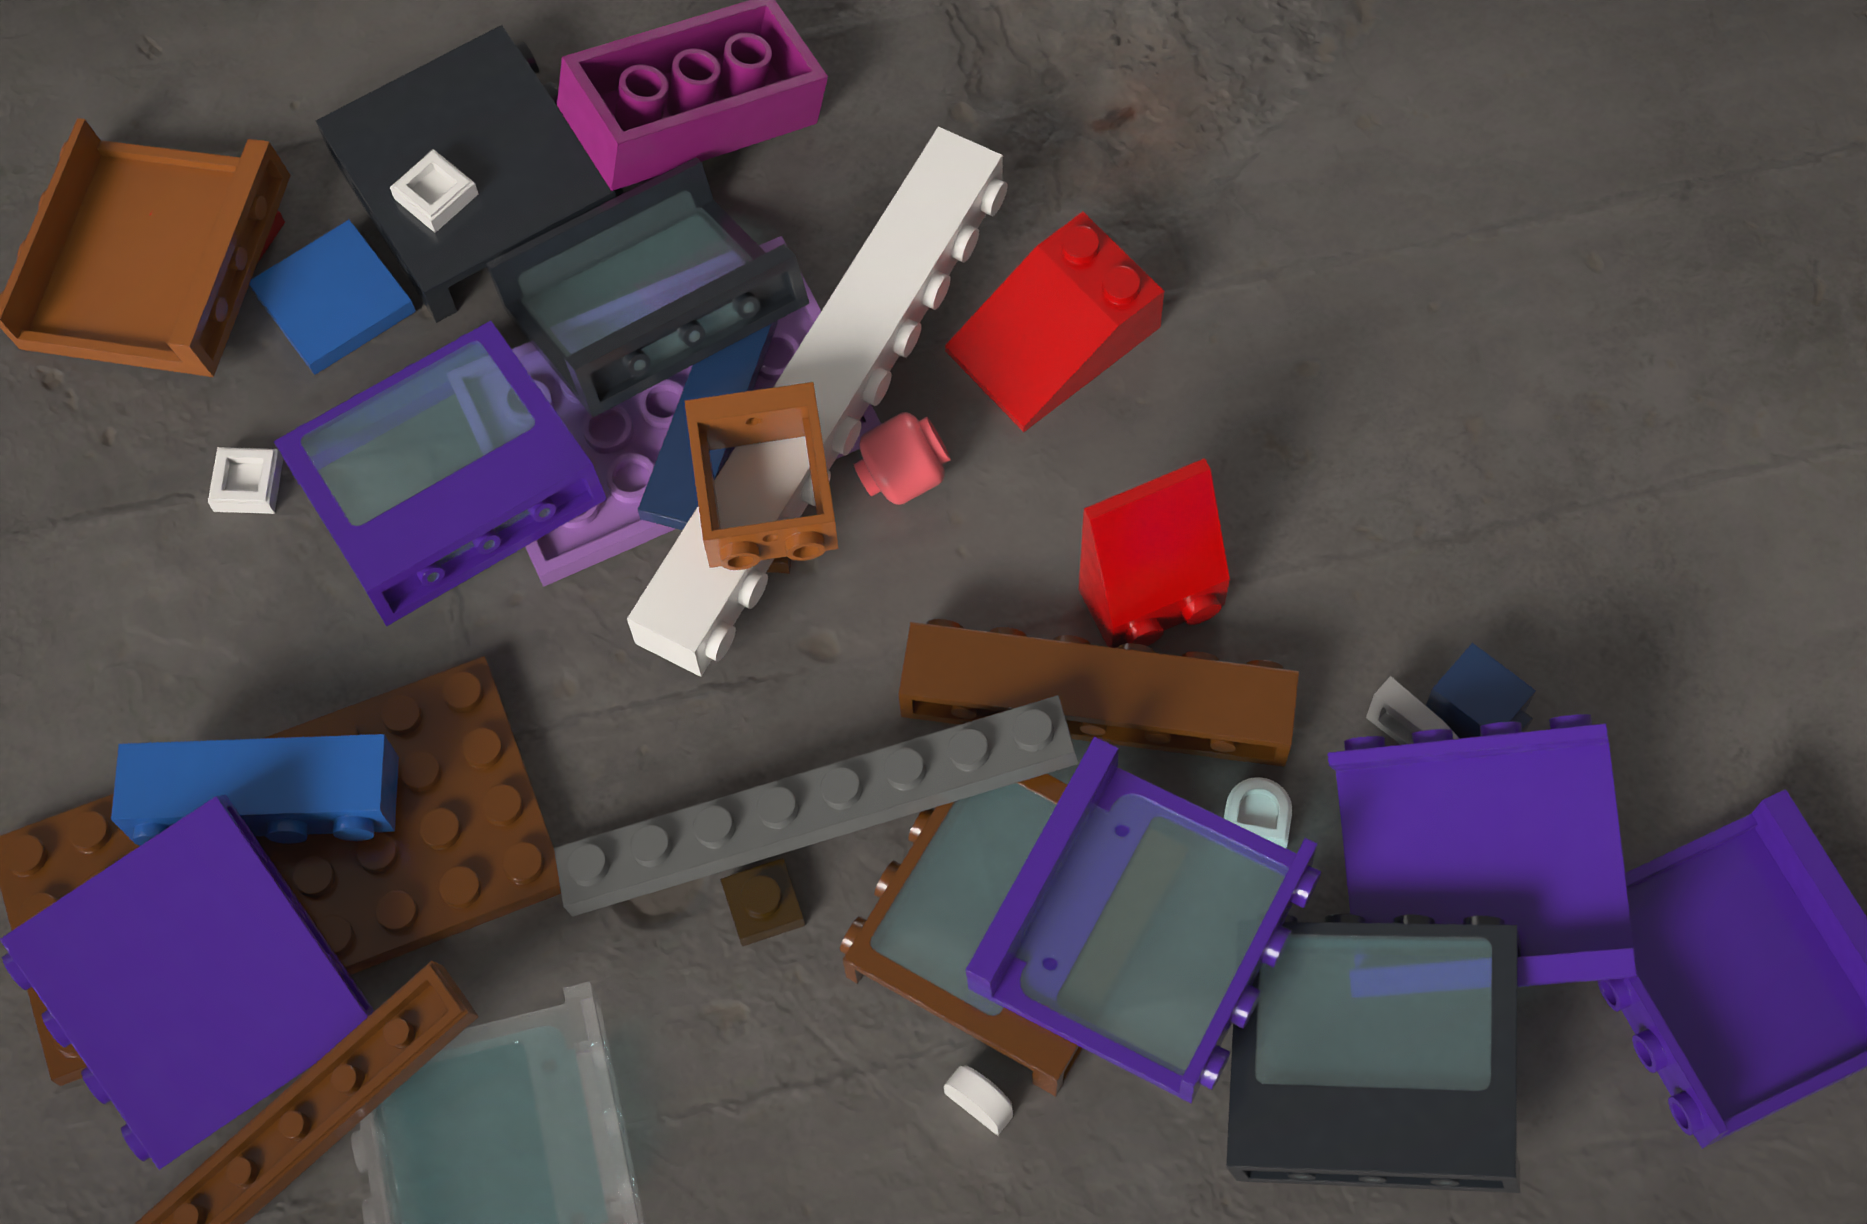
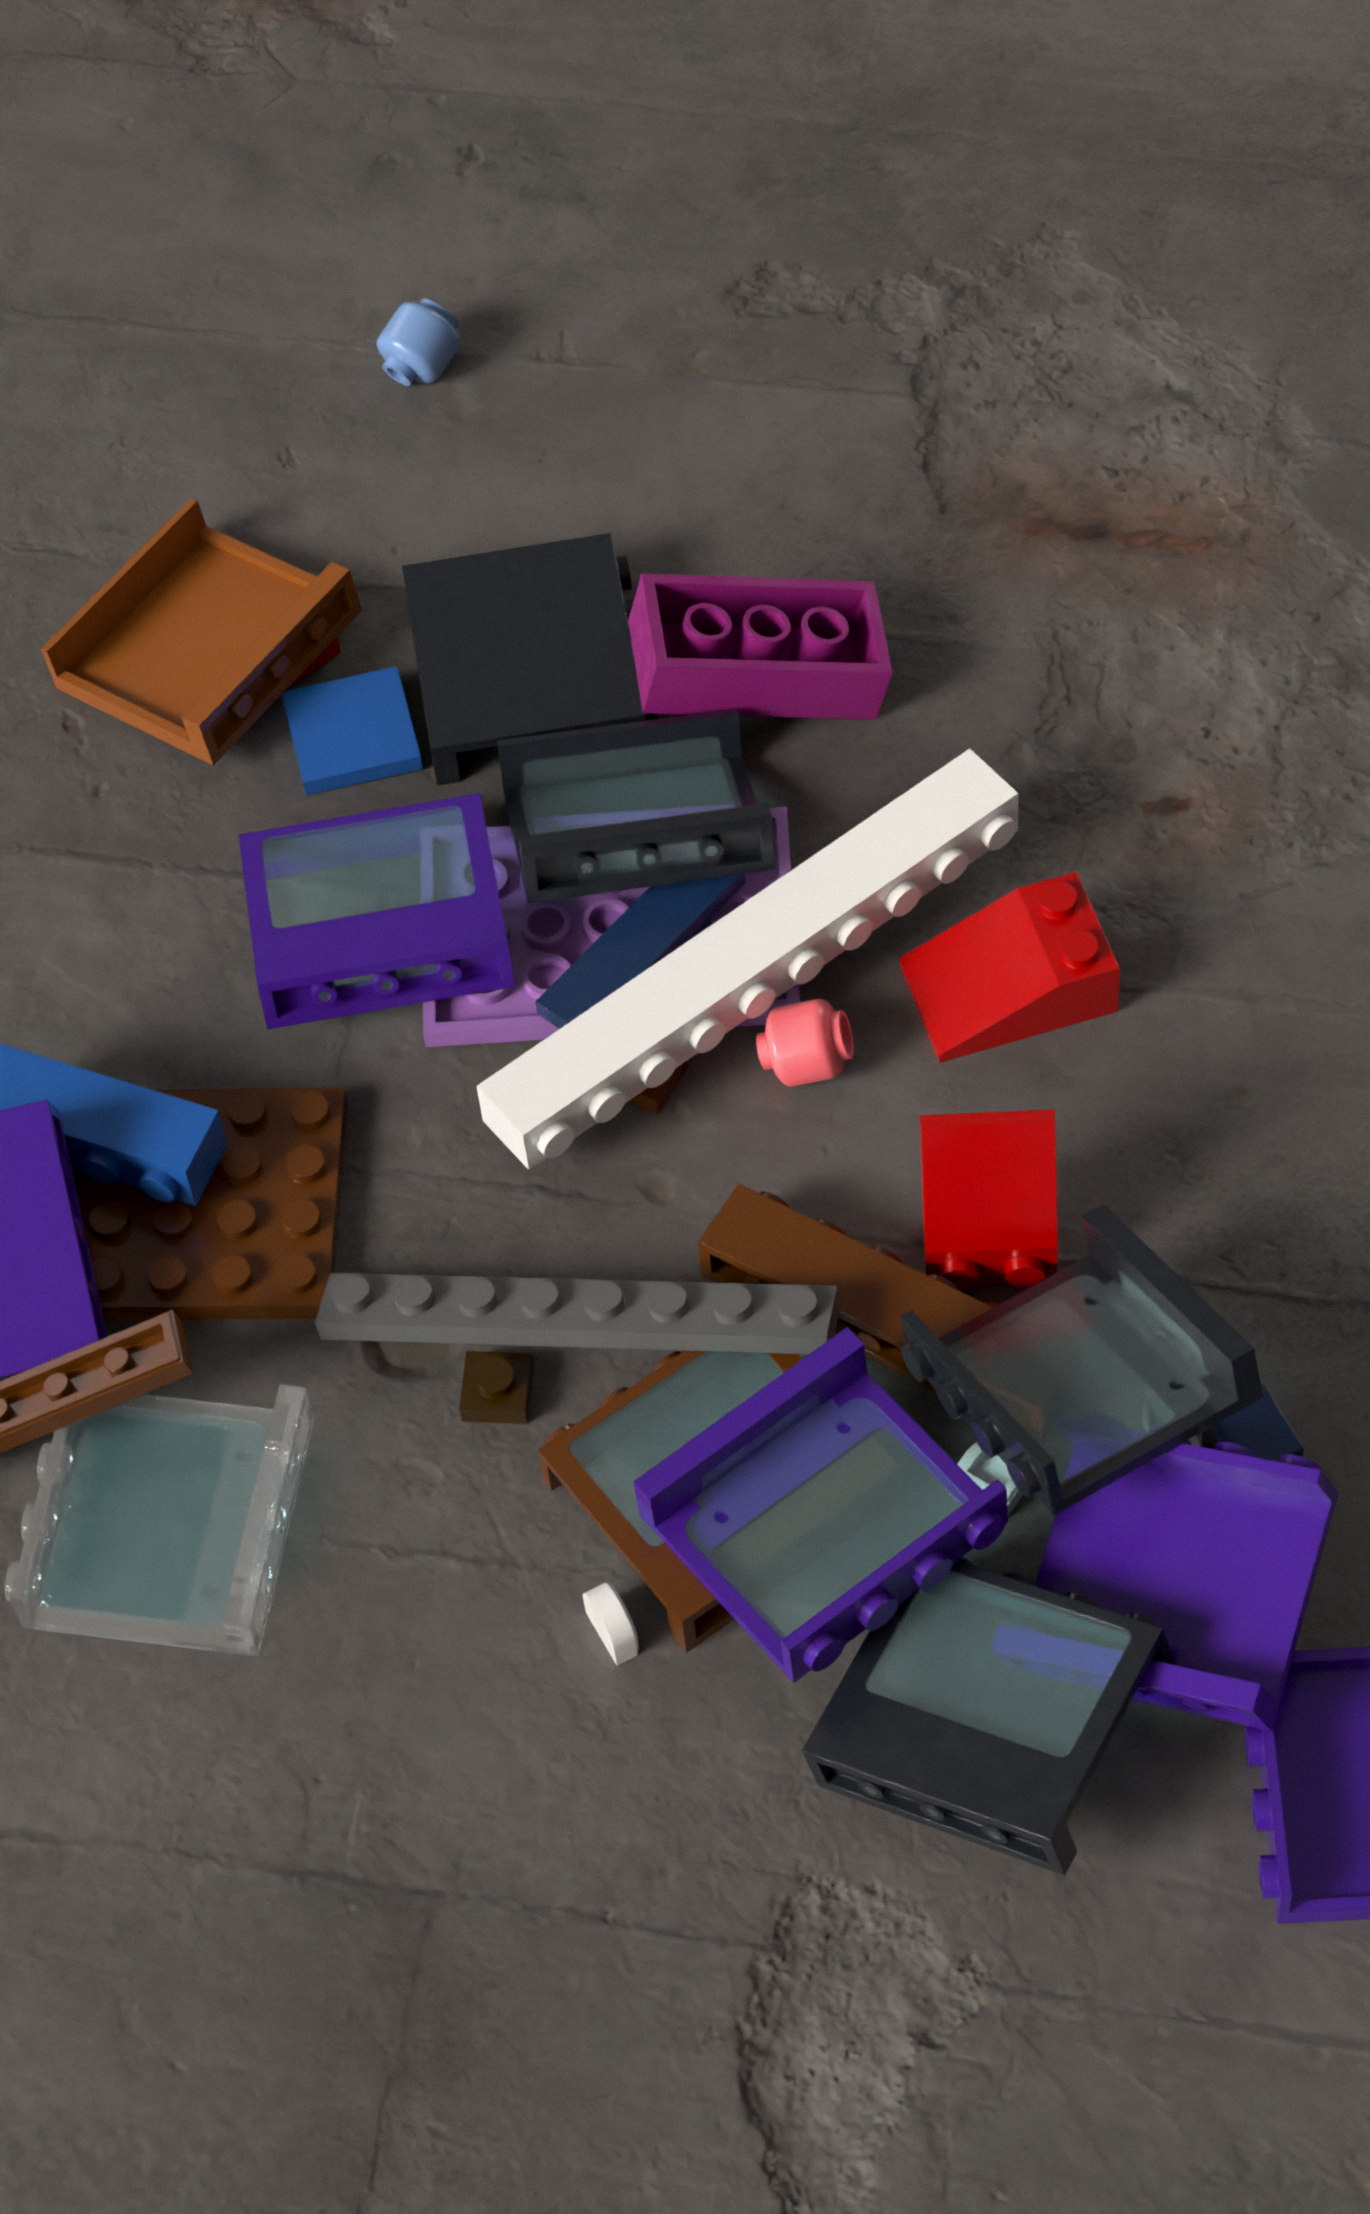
camera: 25 degrees right, 10 degrees down
(245, 480) = (202, 866): white tile -> none
(434, 190) = (479, 661): white tile -> none
(755, 419) = (635, 942): dark orange window -> none
(1330, 694) = (1088, 1368): none -> panel

